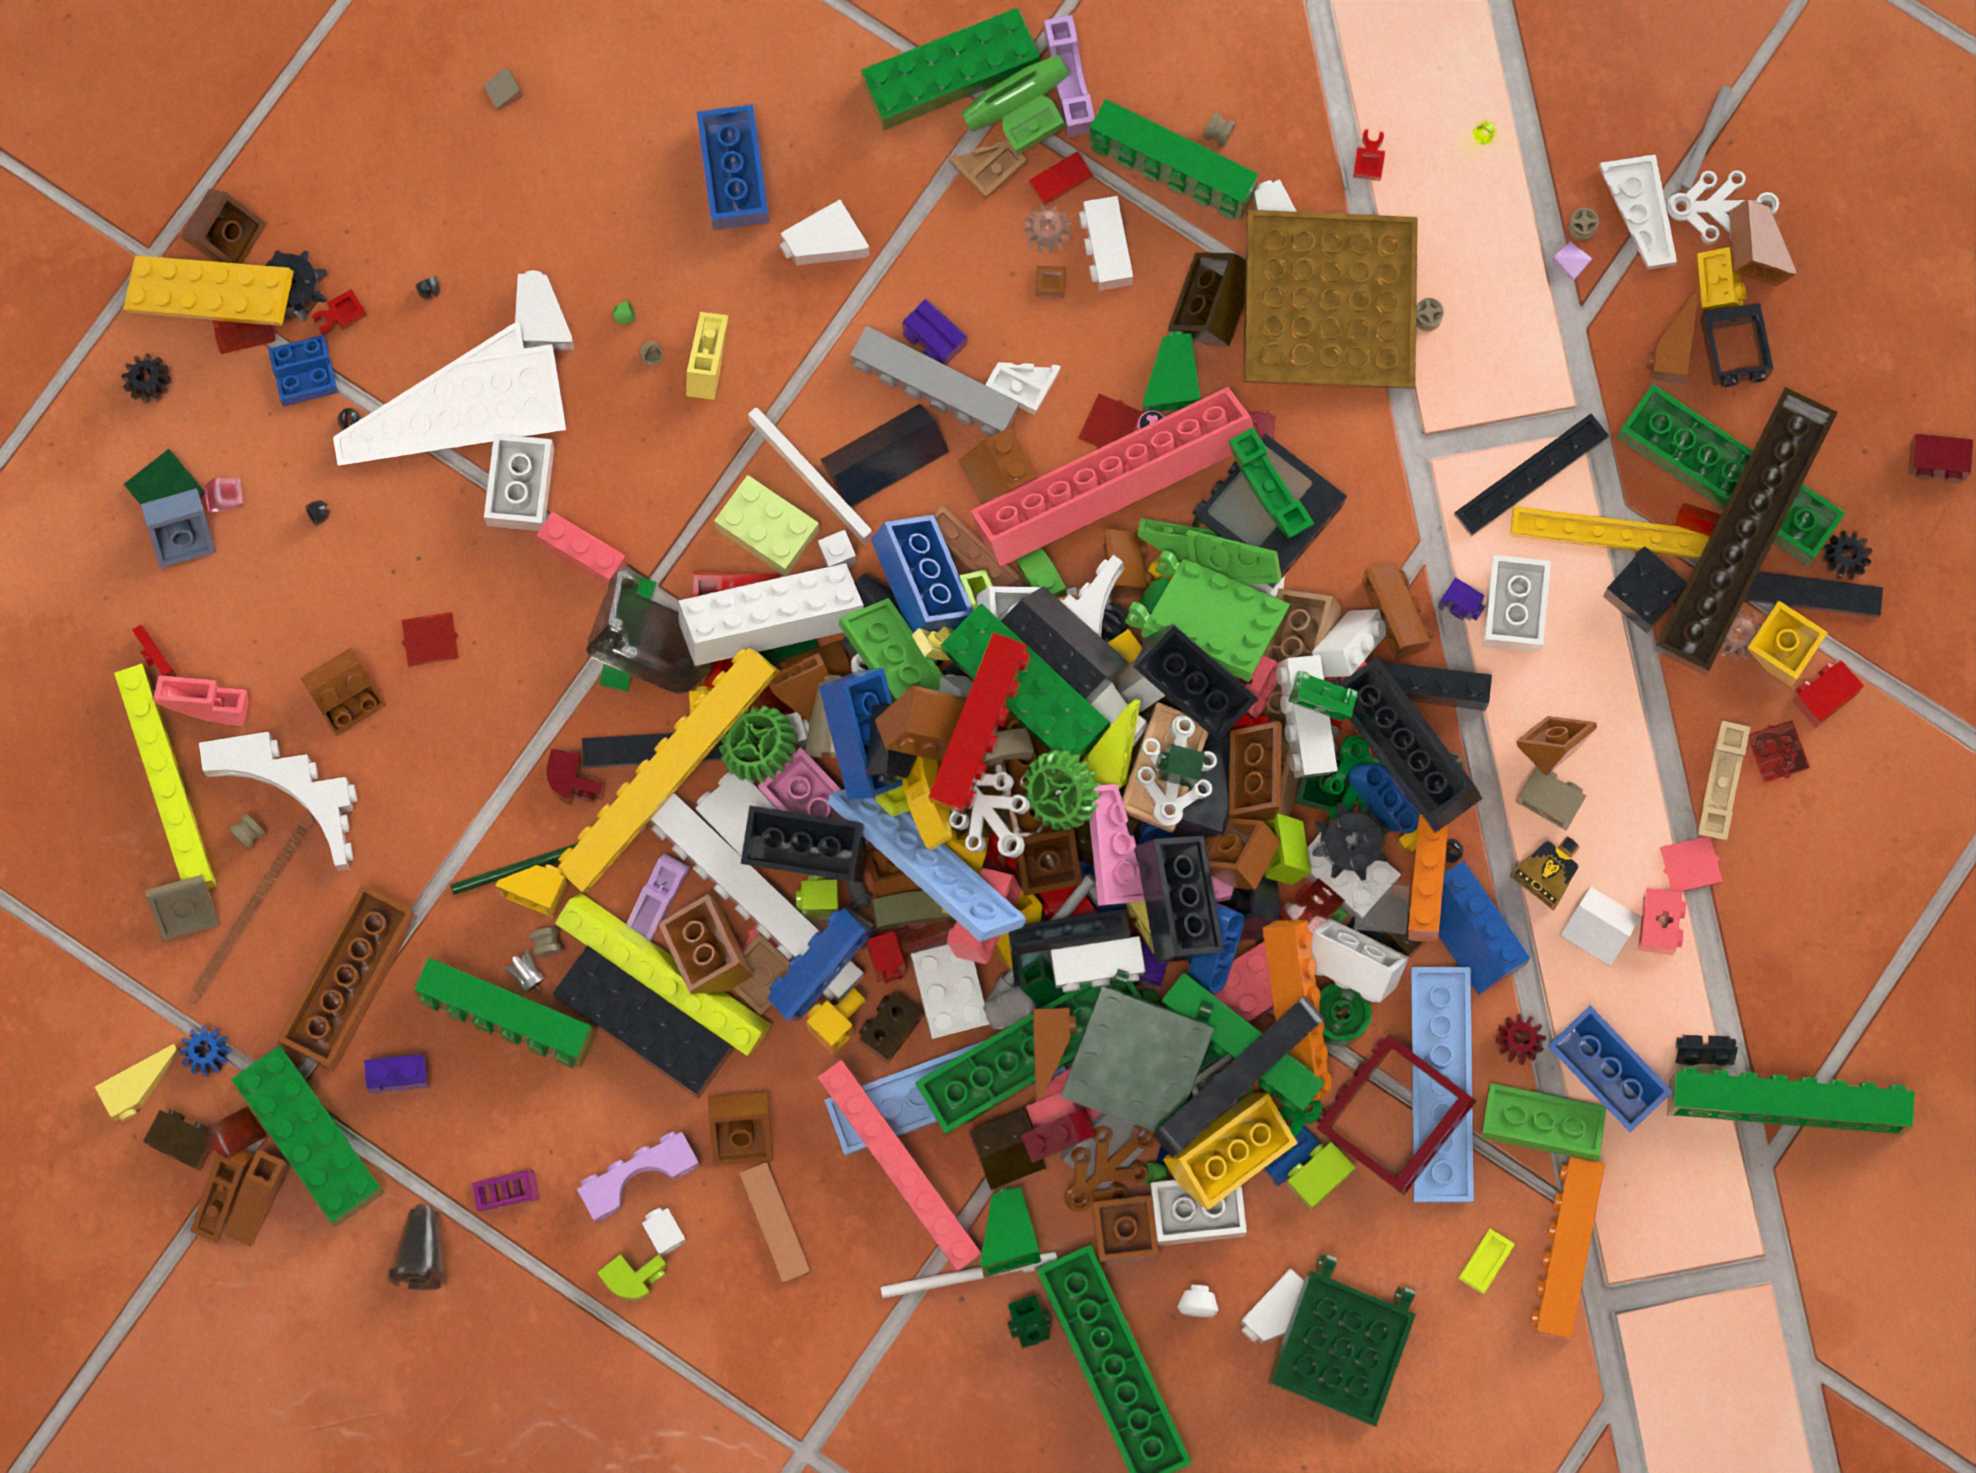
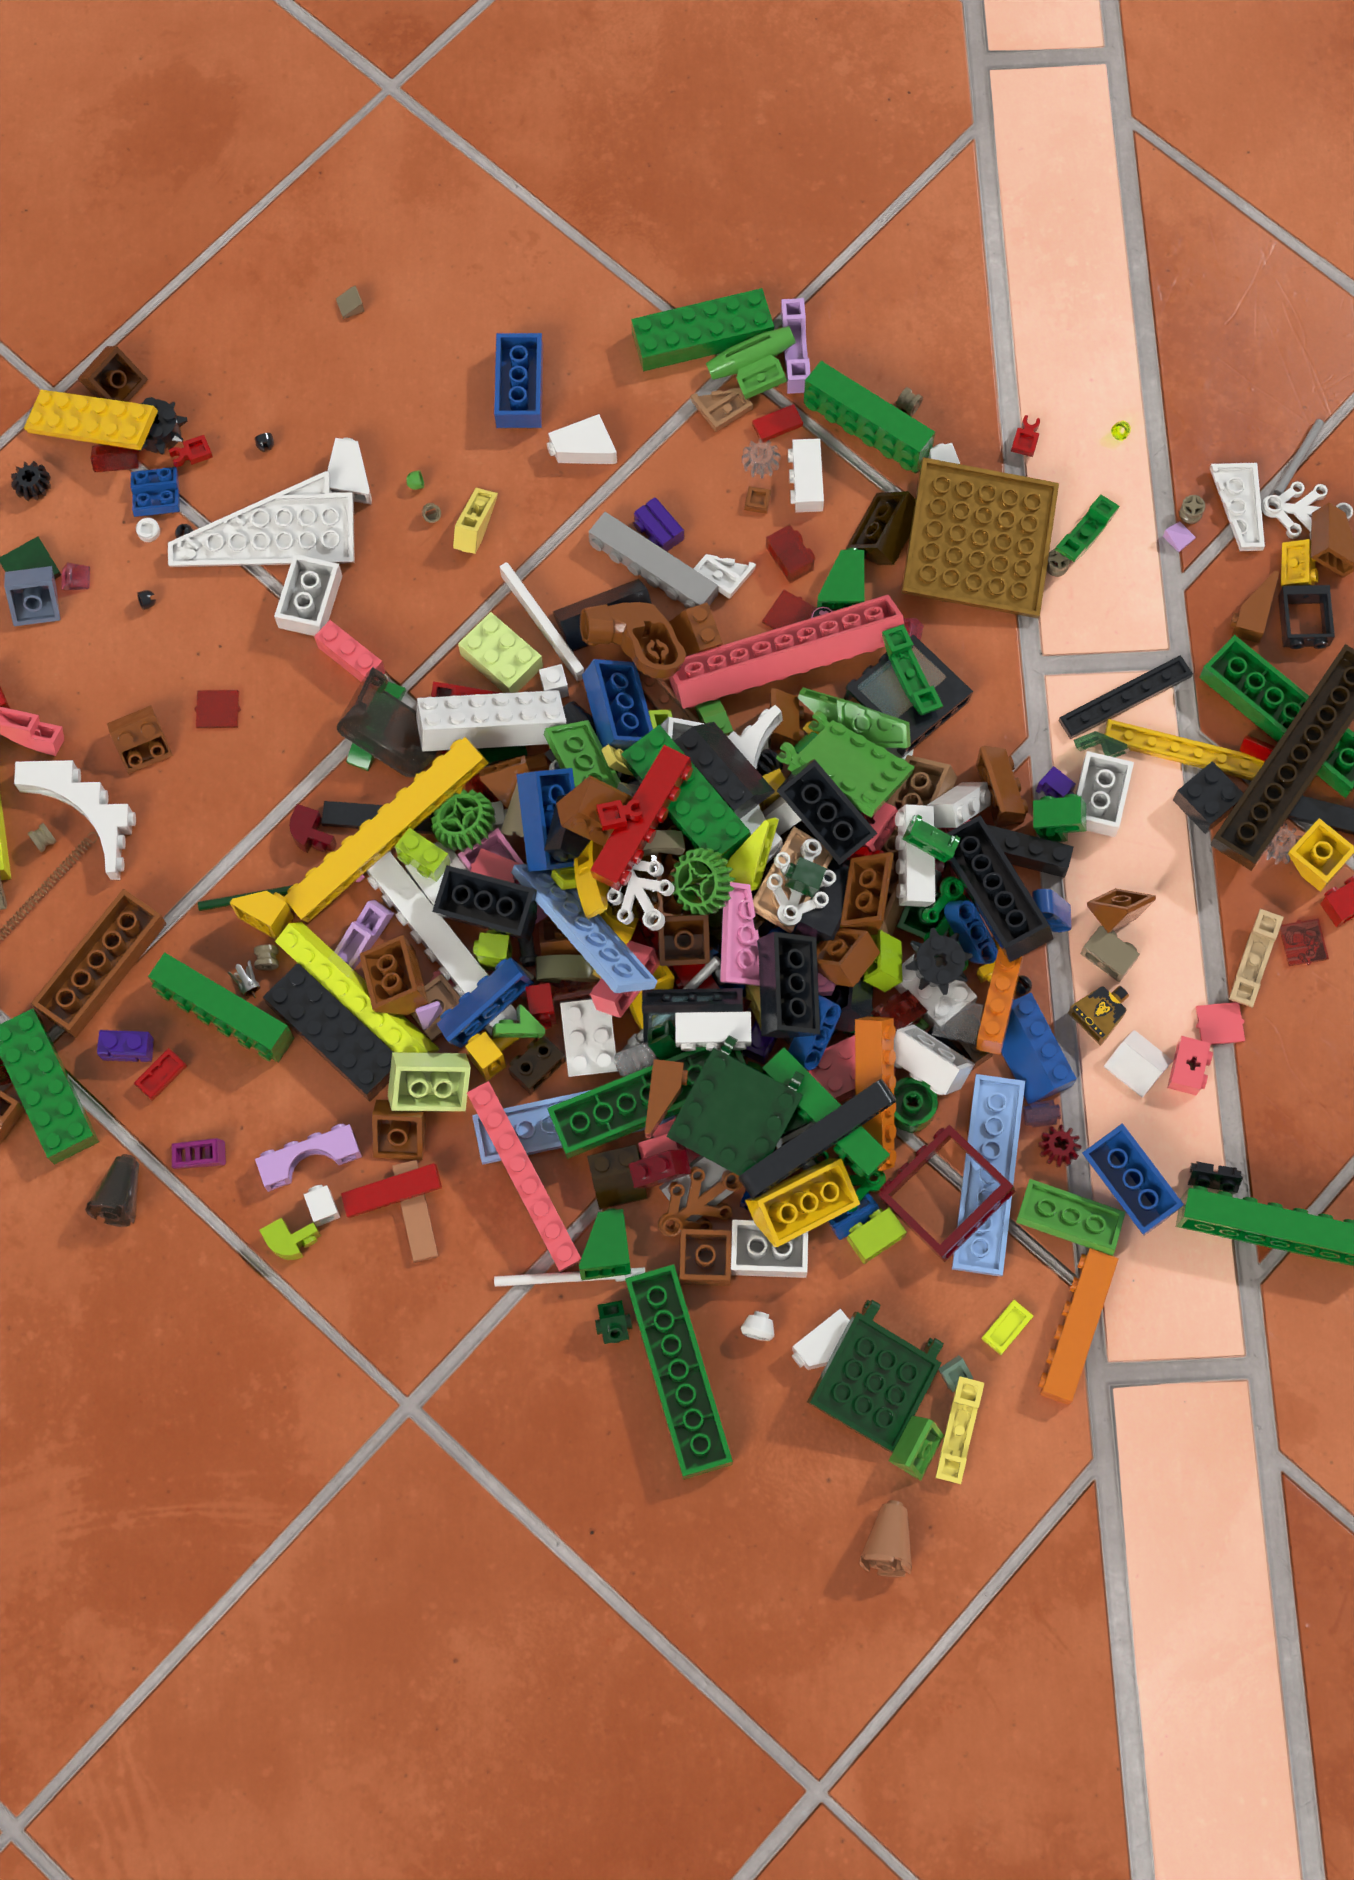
camera: 10 degrees right, 5 degrees down
(302, 421) = (148, 529): none -> white tile
(443, 1102) = (160, 1074): none -> red plate
(715, 793) = (422, 854): none -> lime brick
(743, 1203) = (391, 1190): none -> red tile
(753, 986) = (428, 1014): none -> lavender slope
(768, 1069) = (428, 1081): none -> yellowish green brick
(804, 797) = (493, 866): none -> coral piece
(873, 987) = (525, 1027): none -> bright green slope
(936, 479) = (641, 633): none -> dark orange piece
(947, 727) = (614, 815): none -> red plate
(1101, 347) = (790, 553): none -> clear red brick
(1156, 1173) = (738, 1213): bright green hinge -> none
(1400, 1415) = (917, 1446): none -> bright green slope
(1433, 1324) = (952, 1371): none -> sand green tile
(1446, 1389) = (959, 1430): none -> light yellow slope
(1459, 268) = (1088, 529): none -> green slope
(1470, 642) = (1059, 816): none -> green brick
(1477, 757) = (1054, 909): none -> blue beam
(1494, 1003) = (1041, 1113): none -> clear purple brick
(1520, 543) = (1110, 746): none -> clear green slope

